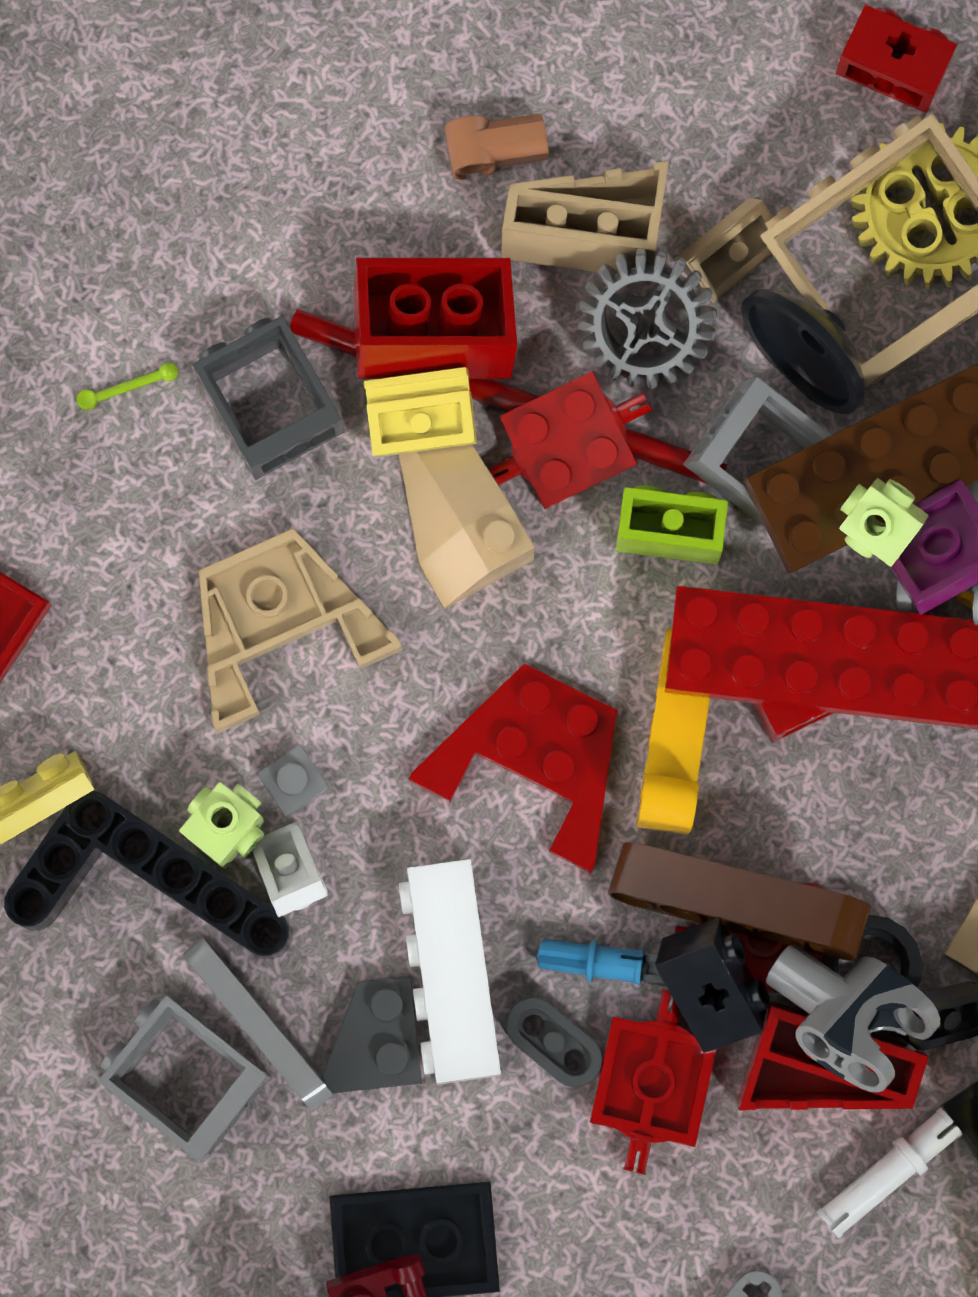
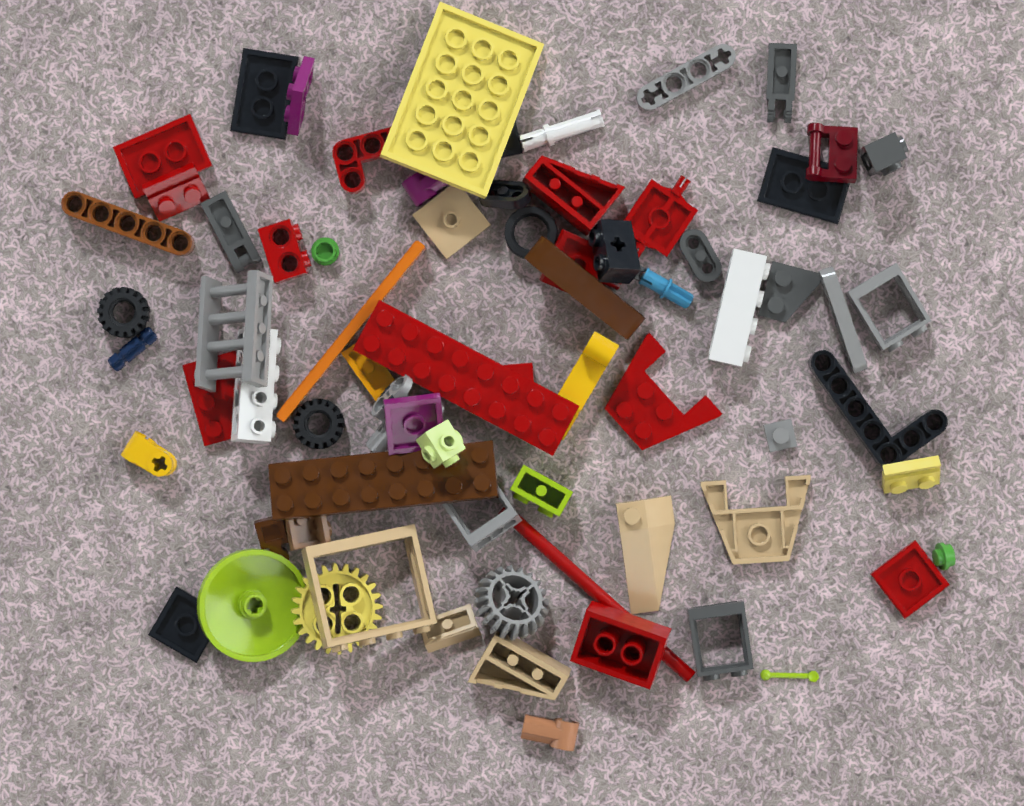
camera: 165 degrees left, 10 degrees up
(224, 843) = (833, 422): yellowish green brick -> none
(289, 870) = (799, 390): white slope -> none
(420, 412) = (646, 597): light yellow plate -> none
(569, 439) = (574, 556): red plate -> none
(806, 348) = (435, 554): black dish -> none
(849, 1010) = (555, 212): light grey connector -> none
(870, 62) = (318, 681): red brick -> none

